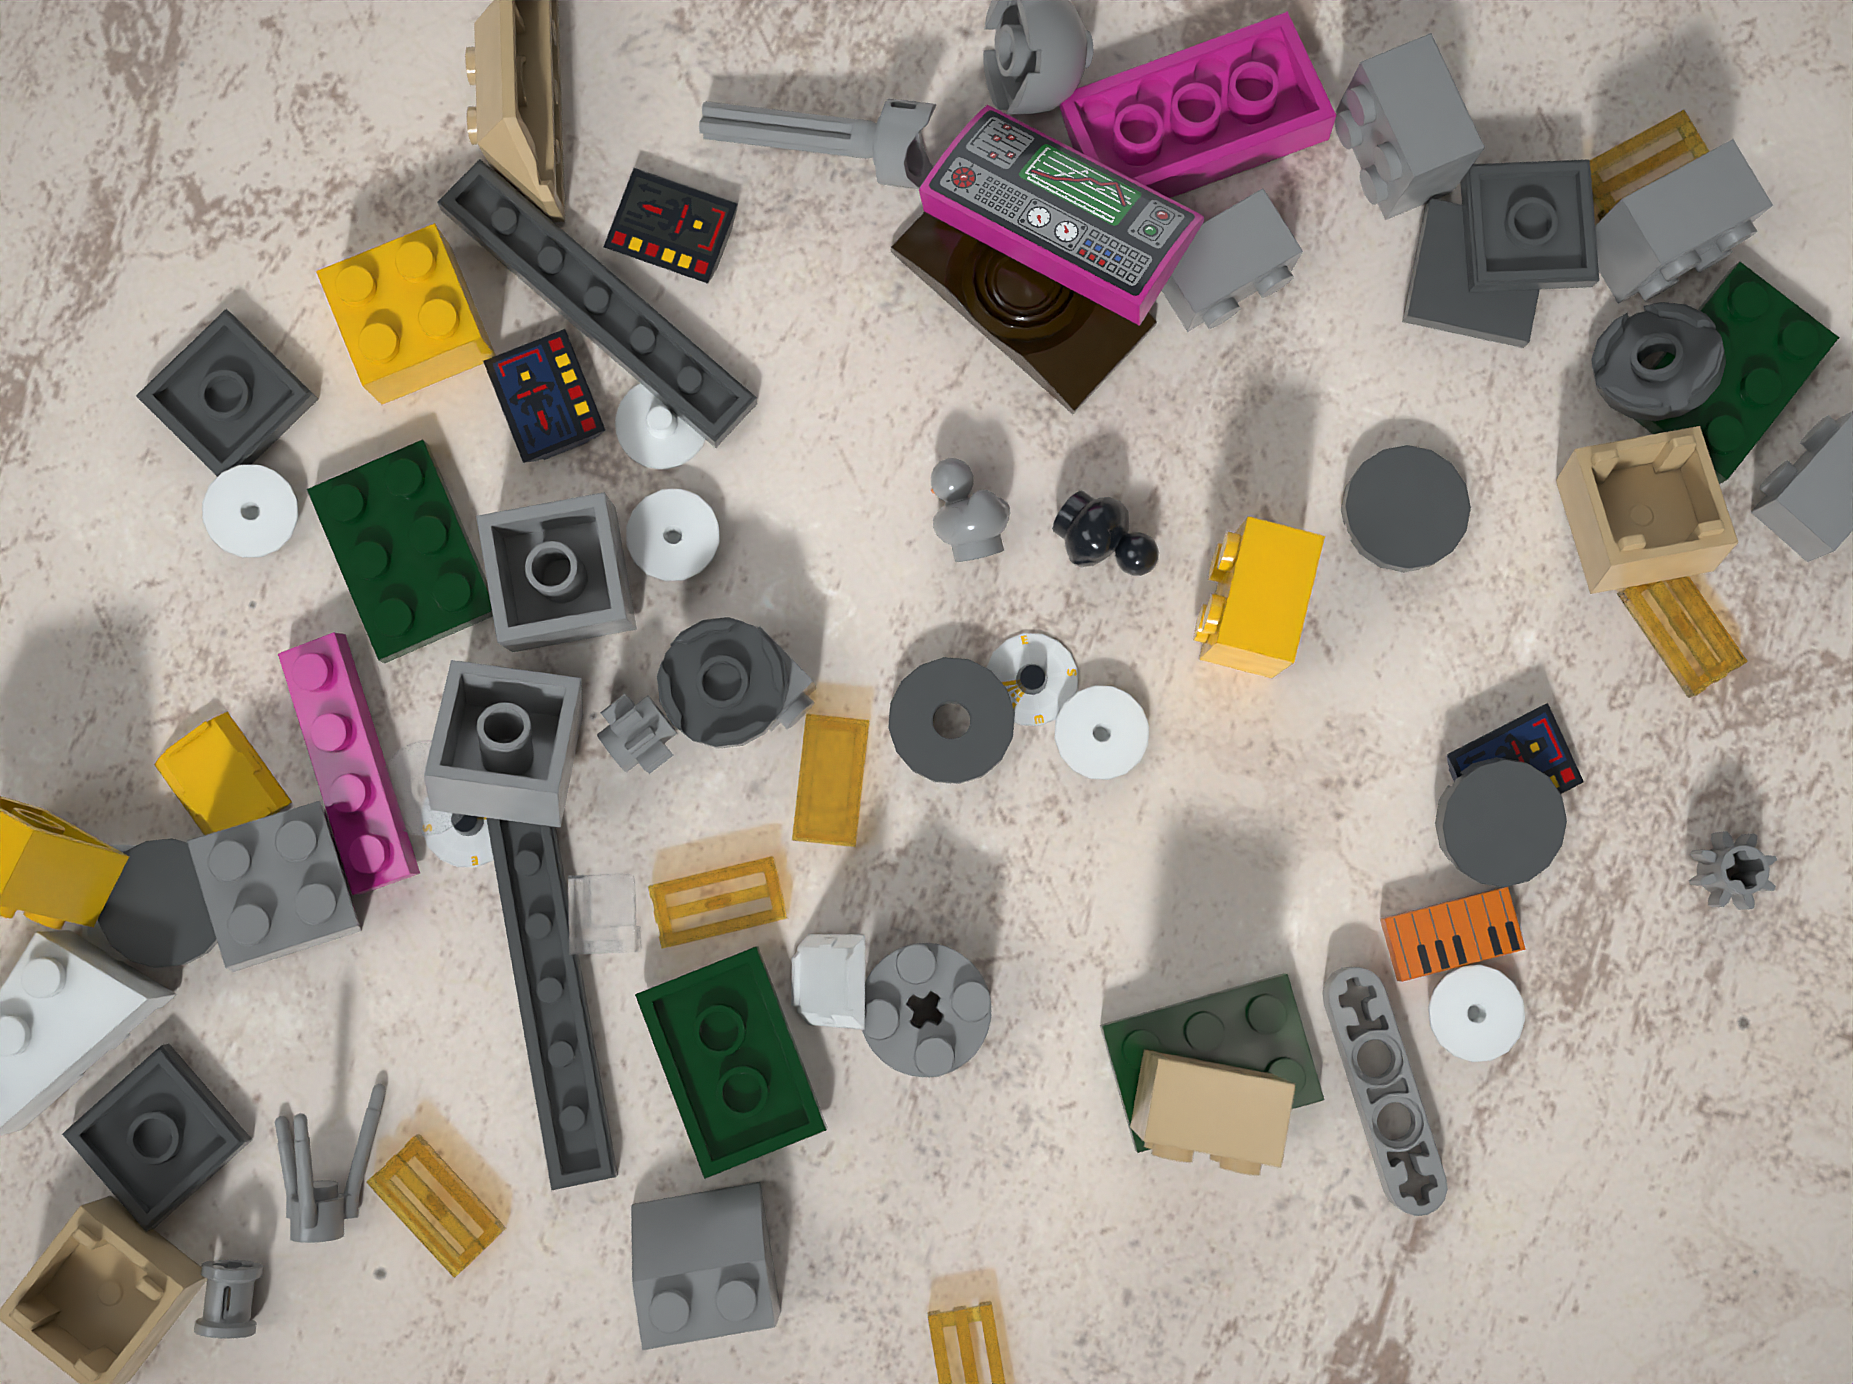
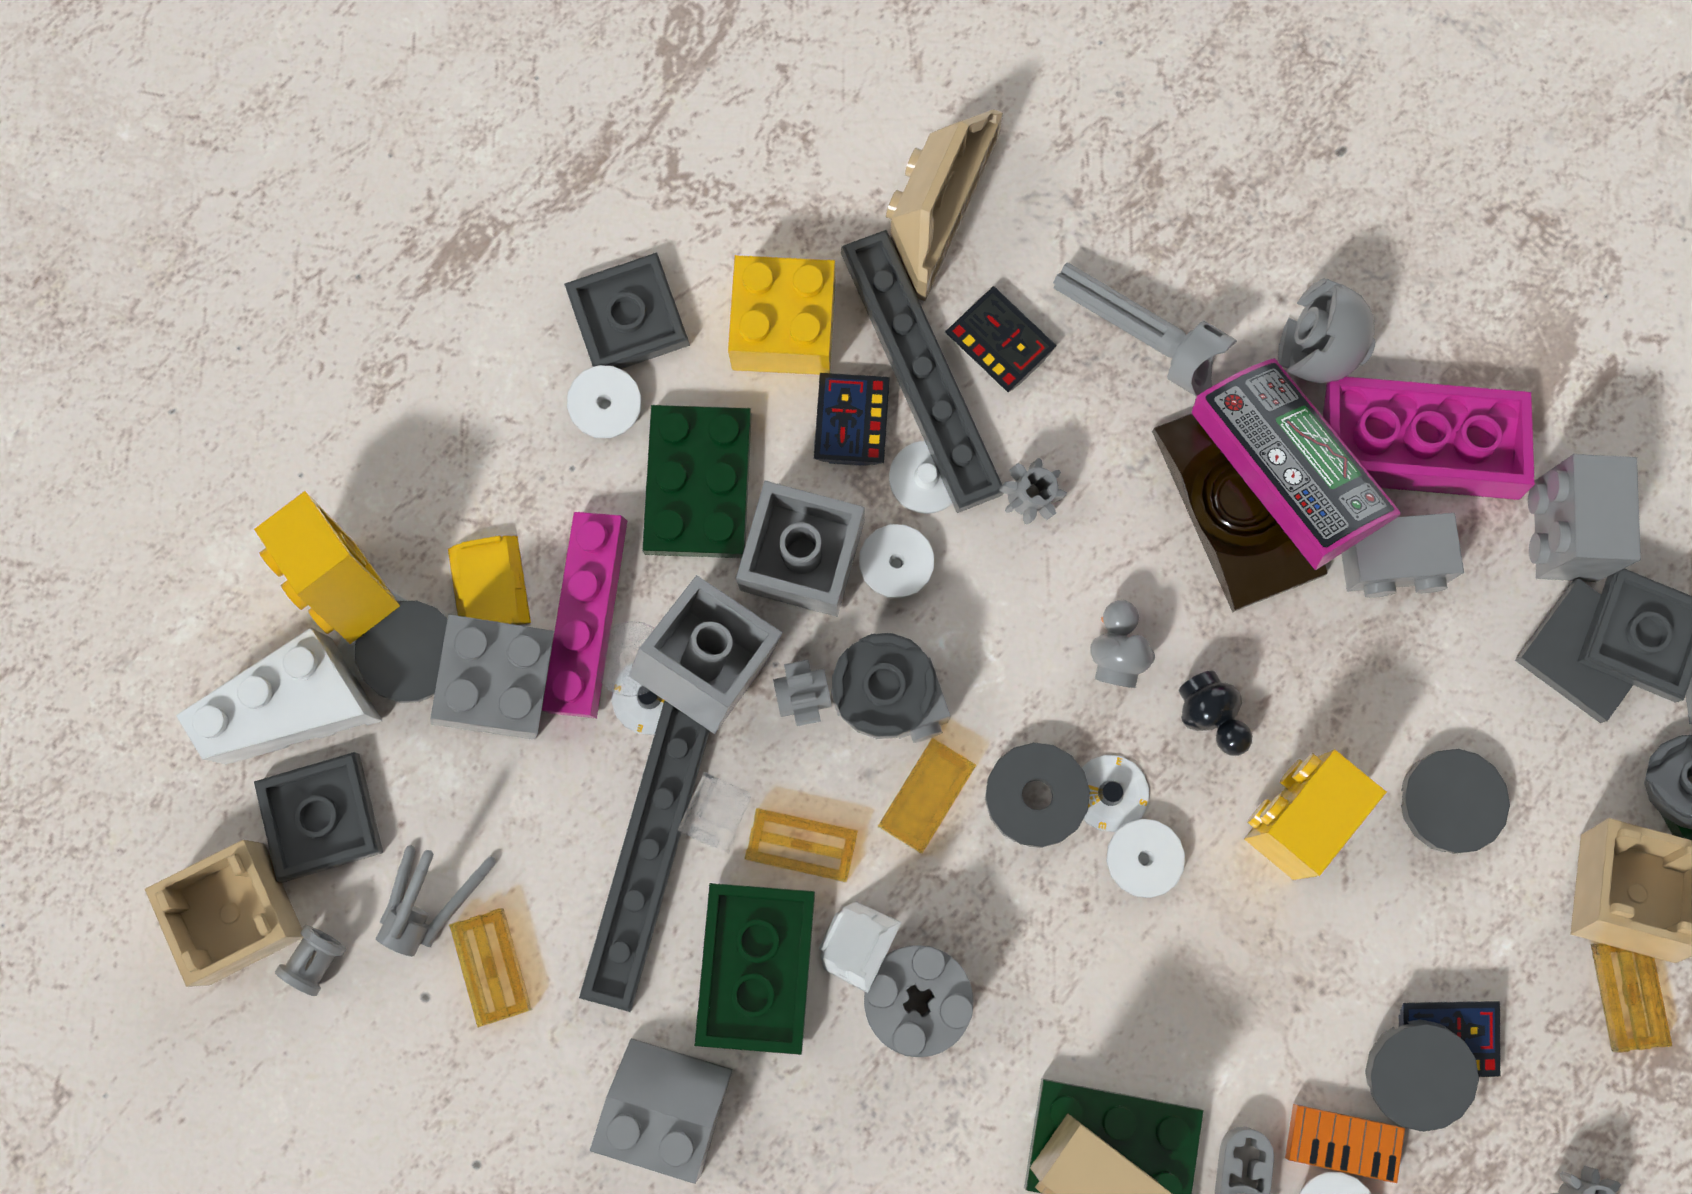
camera: 30 degrees right, 5 degrees down
(772, 374) = (1043, 480): none -> light grey gear

